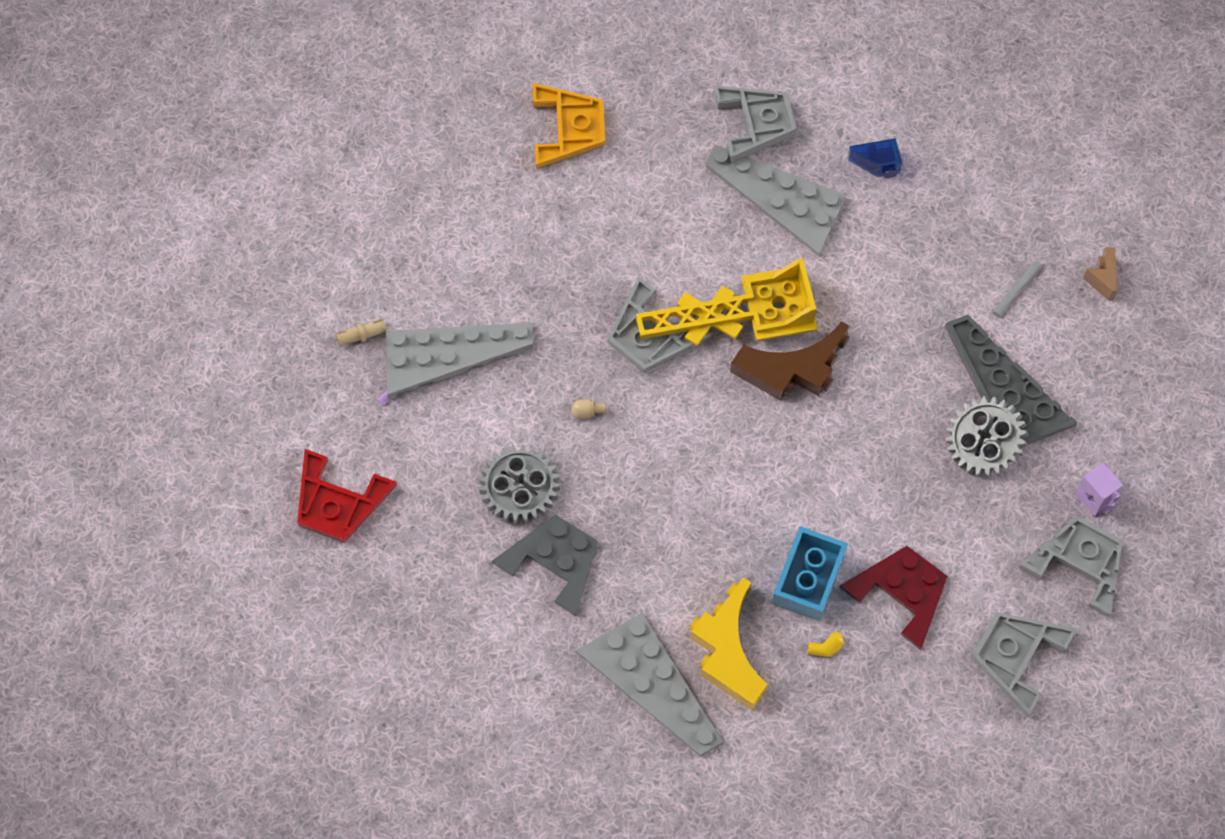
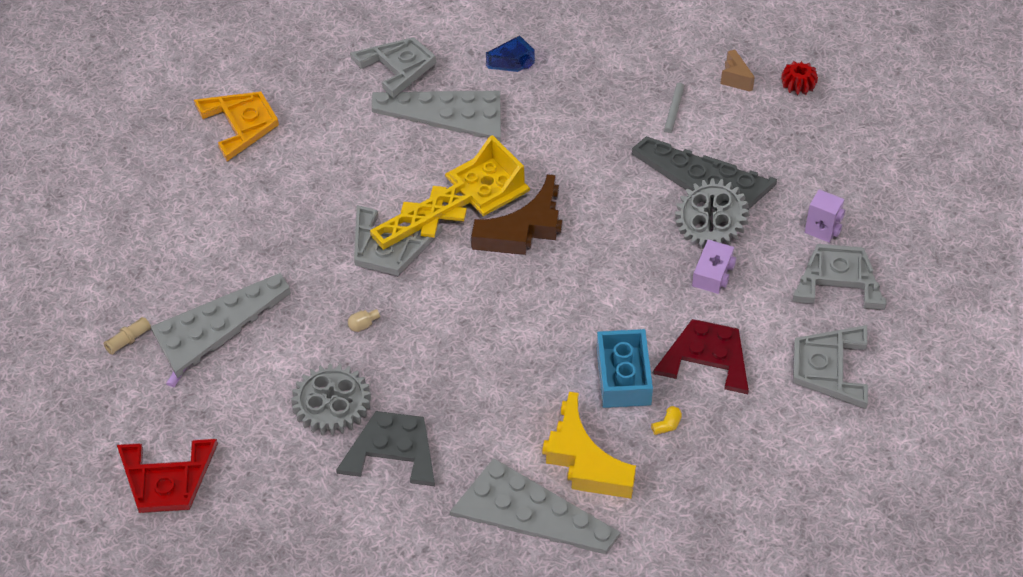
camera: 25 degrees left, 15 degrees down
(963, 484) = (713, 267): none -> lavender brick
(1169, 315) = (799, 77): none -> red gear

